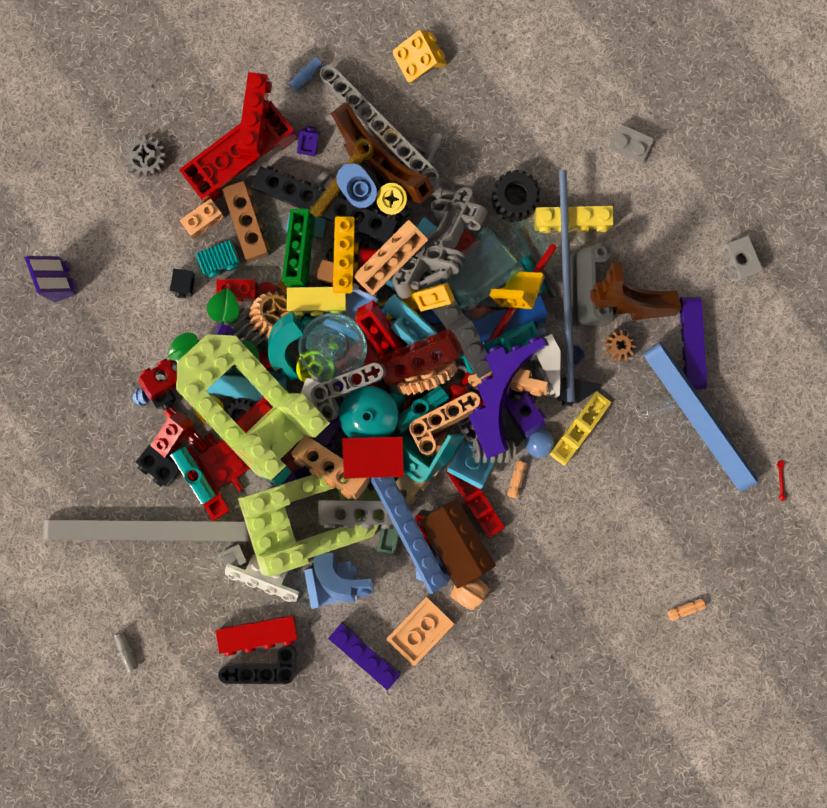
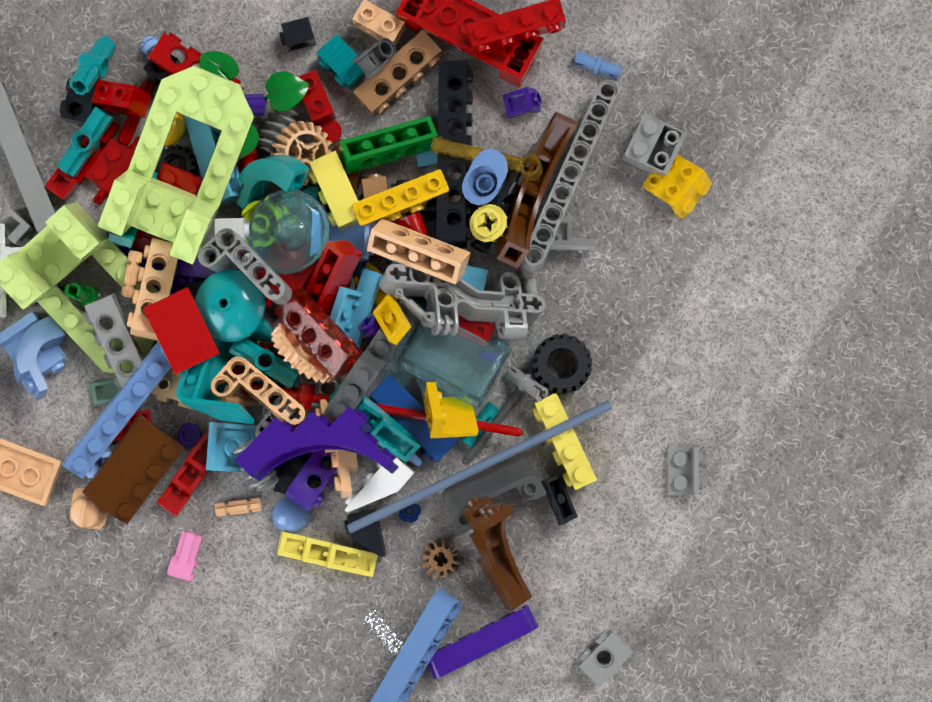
camera: 70 degrees right, 0 degrees up
(137, 444) = (92, 65): none -> teal piece
(227, 230) = (375, 57): none -> dark grey piece
(311, 480) = (131, 274): none -> light nougat axle
(313, 520) = (82, 294): none -> green pin
(324, 179) = (484, 139): light grey wheel -> none
(384, 59) = (654, 145): none -> light grey slope
(429, 318) = (369, 326): none -> dark purple bush
(447, 492) = (189, 434): none -> dark purple tile
(519, 226) = (526, 383): none -> light grey pin
(541, 536) = (184, 560): none -> bright pink piece
(616, 240) = (559, 499): none -> black slope

